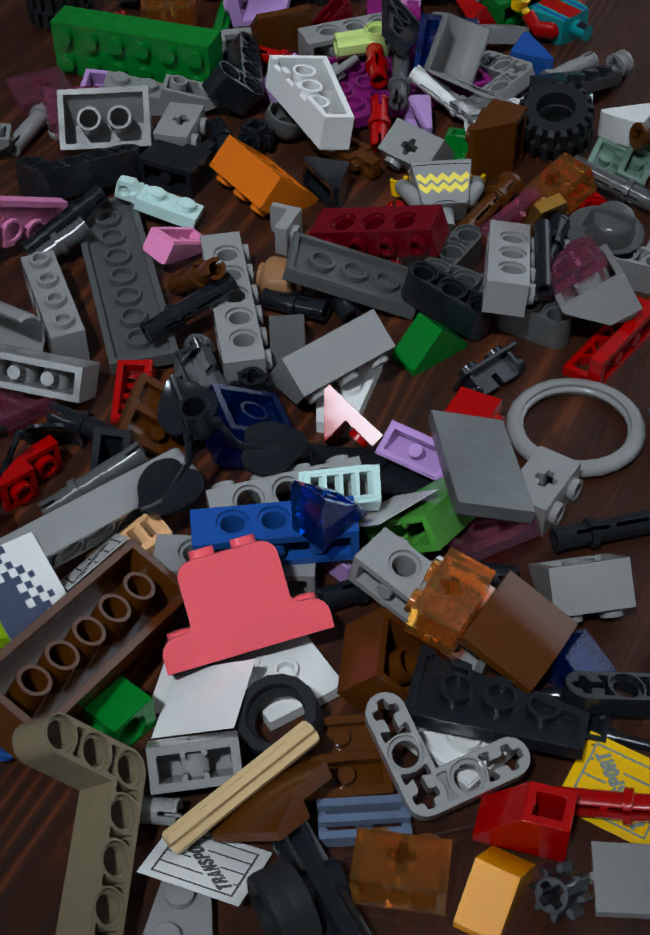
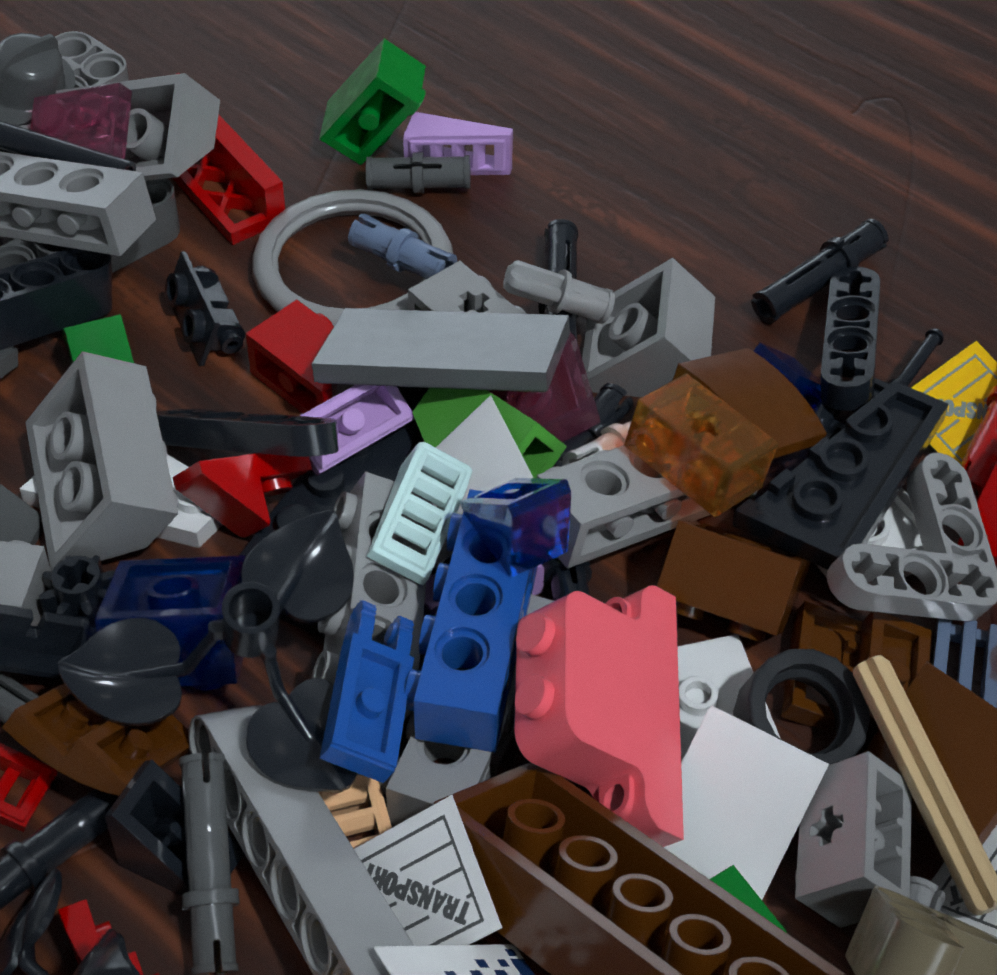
camera: 75 degrees left, 5 degrees up
(175, 496) = (369, 696): none -> blue hinge
(378, 407) = (249, 432): none -> black beam
(579, 517) = (559, 291): none -> light grey axle
(583, 435) = (398, 247): none -> sand blue pin

